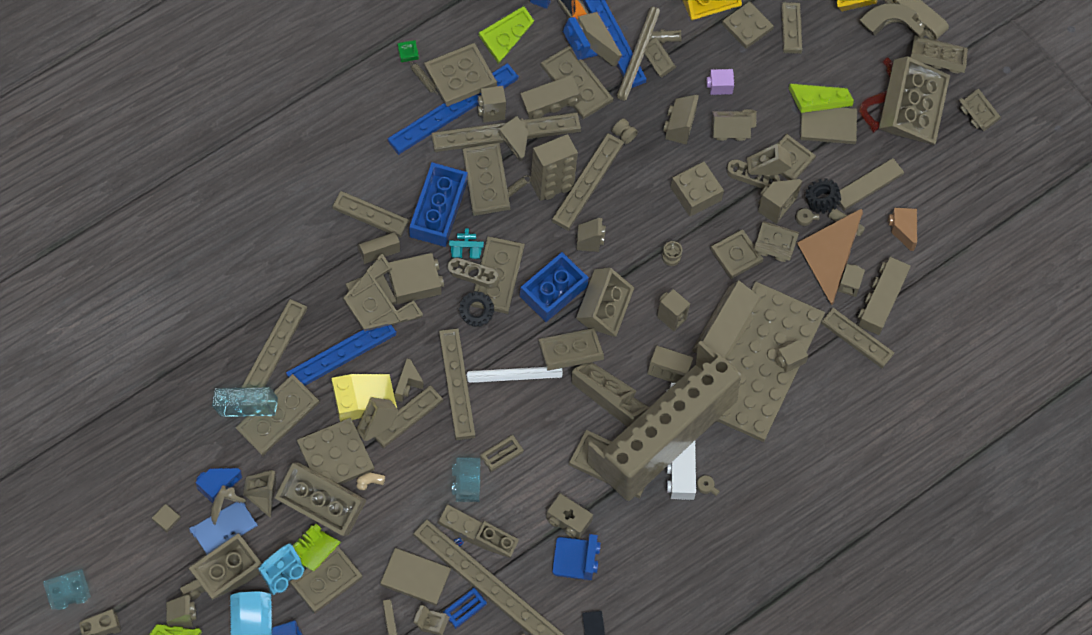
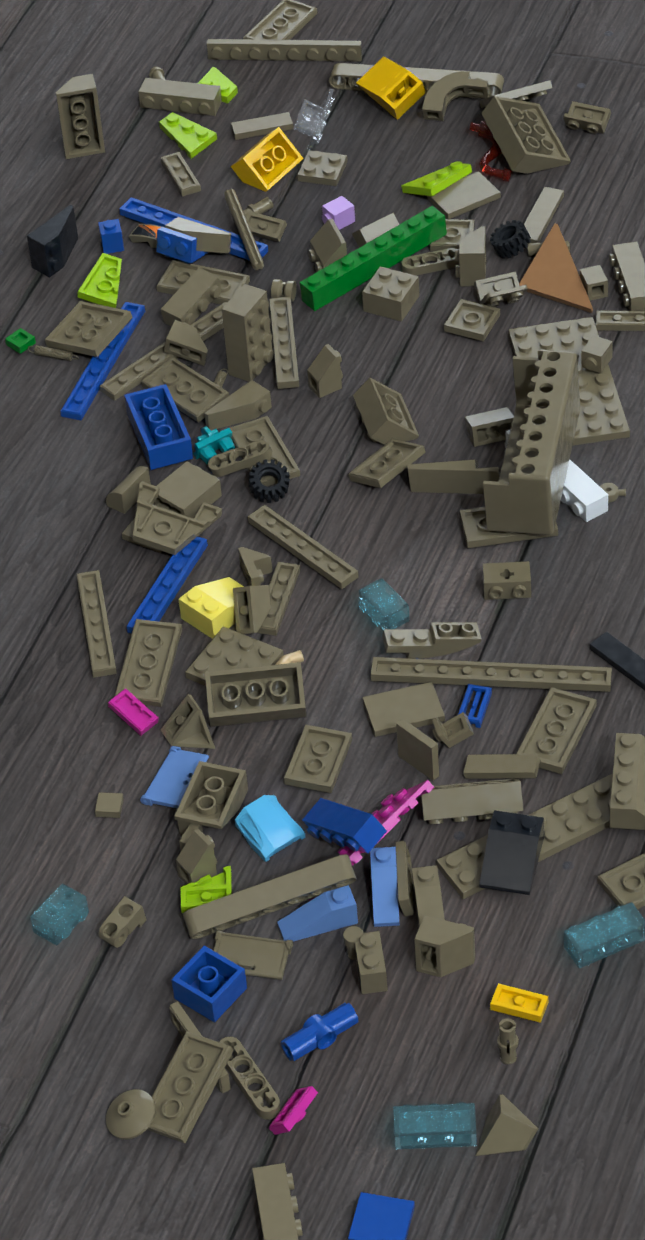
camera: 25 degrees left, 20 degrees down
(212, 481) = (136, 746): blue slope -> none
(224, 493) = (156, 751): dark tan piece -> none
(237, 449) = (133, 712): none -> dark pink plate
(245, 402) = (108, 664): clear light blue brick -> none
(281, 568) = (269, 764): medium azure slope -> none
(315, 547) = (282, 739): lime hinge -> none
(370, 214) = (93, 474): dark tan tile -> none
(483, 456) = (405, 574): dark tan tile -> none
(492, 104) = (141, 329): dark tan brick -> none
(513, 374) = (351, 511): white axle -> none
(514, 223) = (241, 406): none -> dark tan slope
(554, 287) = (327, 426): blue brick -> none
(576, 557) = (547, 606): blue bracket -> none
(673, 249) = (413, 349): dark tan wheel -> none
(673, 309) = (456, 381): dark tan brick -> none
(705, 146) = (365, 261): none -> green brick
(729, 319) = (506, 342): dark tan slope -> none
(770, 161) = (439, 238): dark tan slope -> none
(791, 28) = (364, 150): dark tan tile -> none
(809, 217) = (507, 265): dark tan piece -> none
(904, 226) = (603, 224): medium nougat slope -> none

